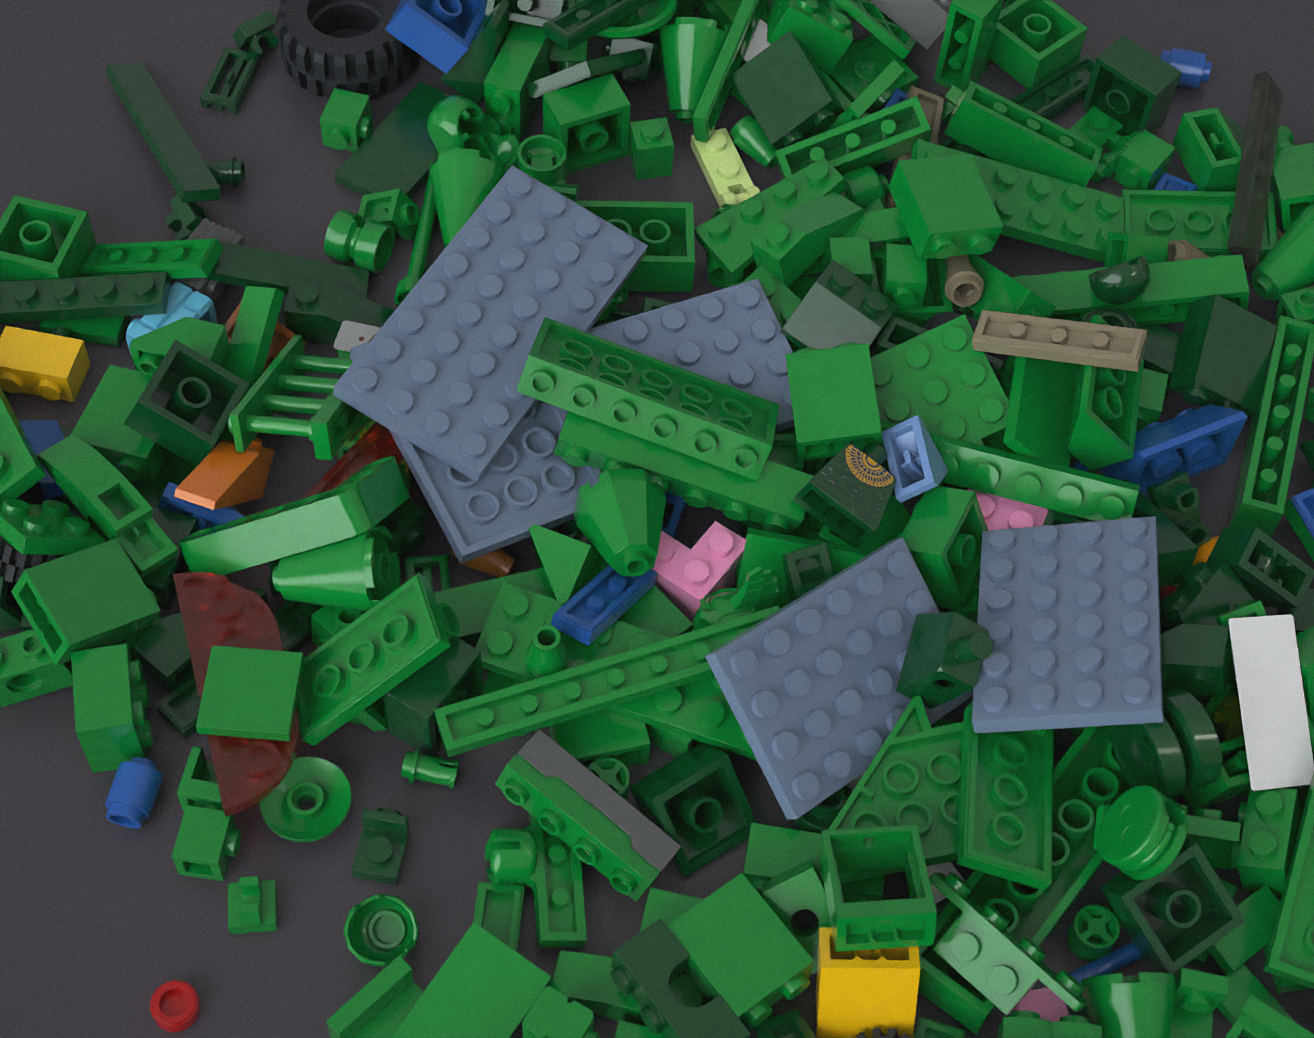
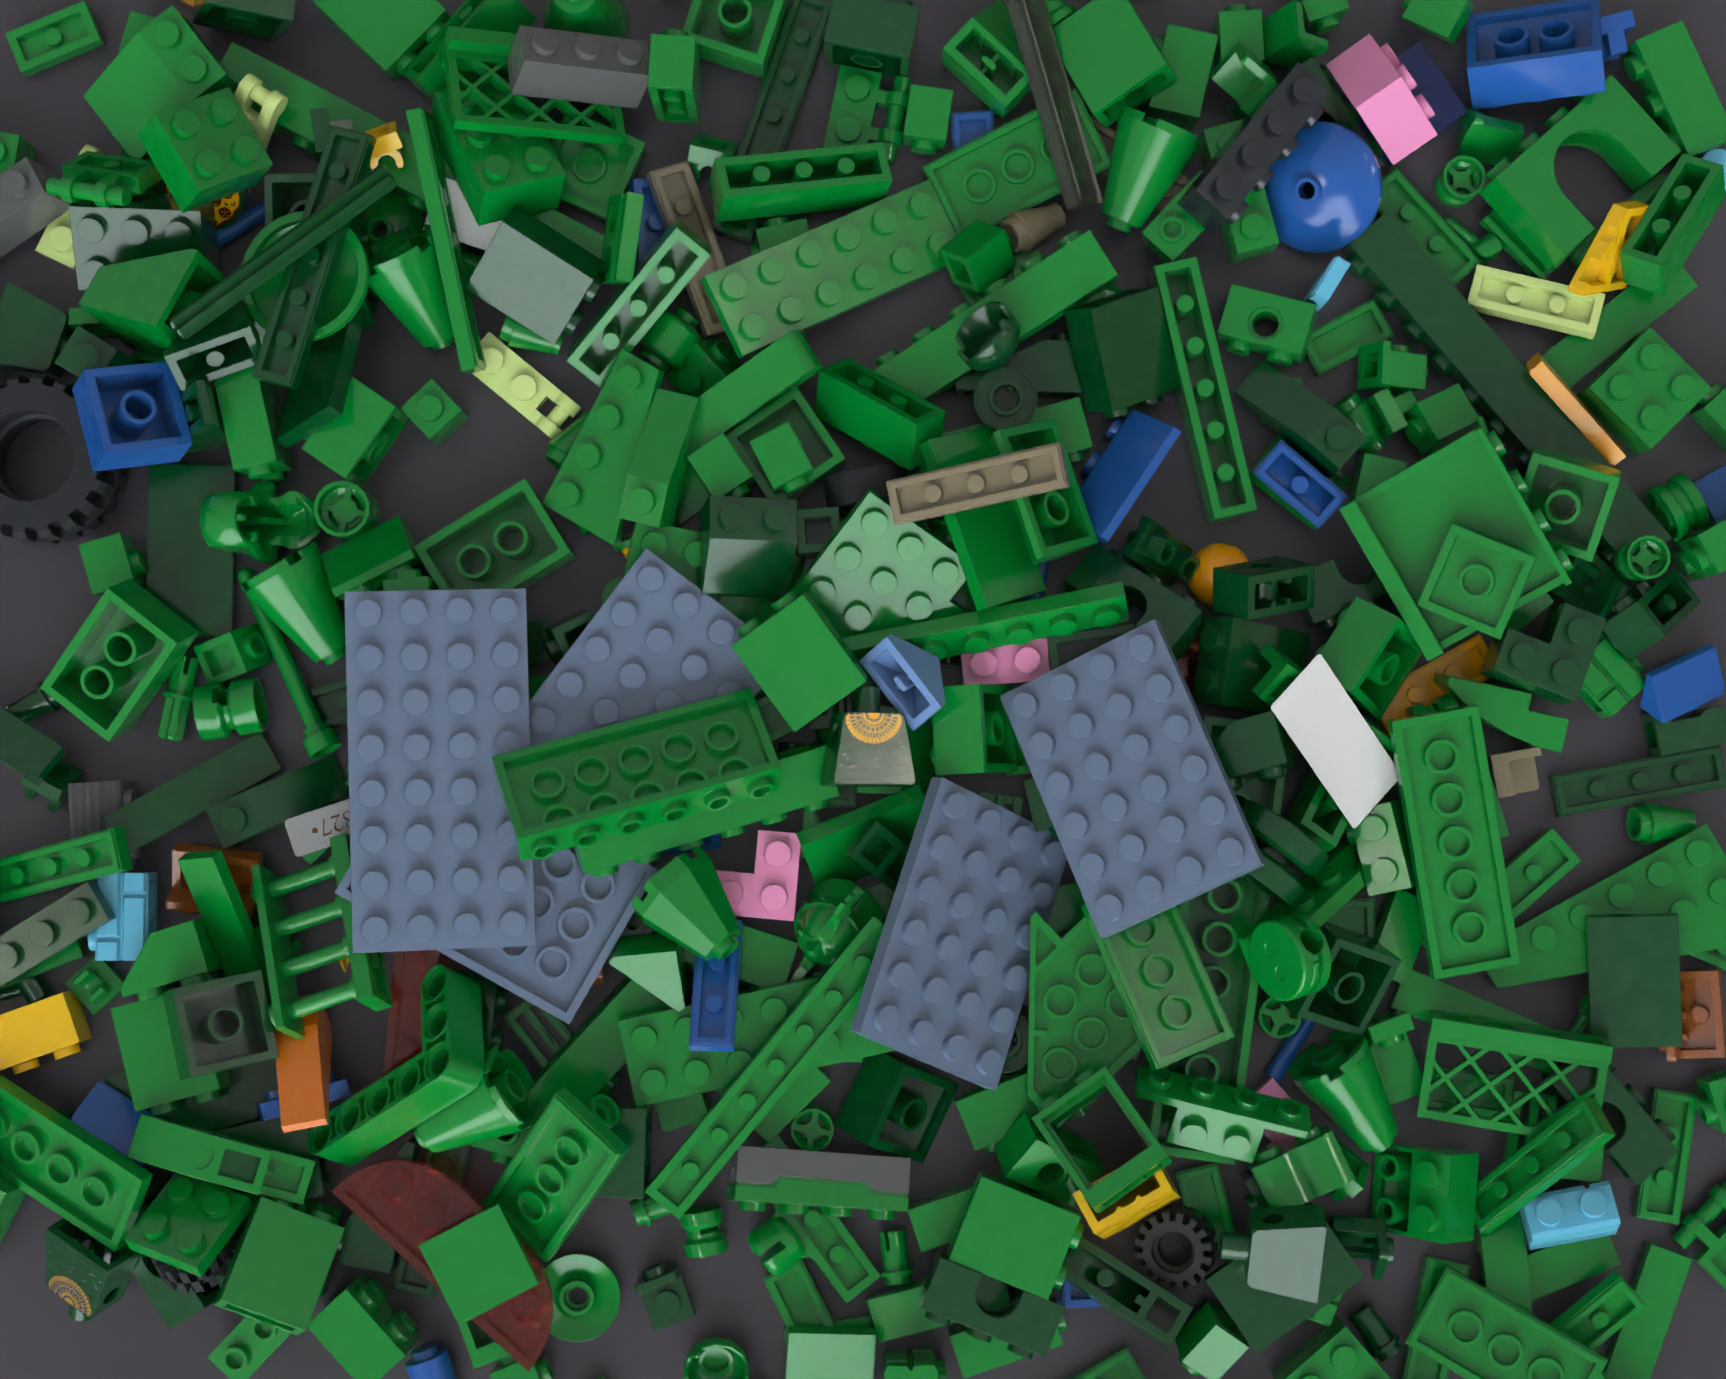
camera: 30 degrees left, 30 degrees up
(107, 354) = (96, 984): none -> green tile
(306, 162) = (119, 659): none -> green brick
(317, 225) = (177, 700): none -> green axle
(454, 810) = (703, 1231): none -> green wheel
(546, 652) = (705, 1069): green cone -> none
(611, 931) = (895, 1257): none -> green pin
(943, 658) = (1038, 870): dark green torso -> none
(945, 206) = (785, 372): green brick -> none
(962, 281) = (837, 422): dark tan cone -> none

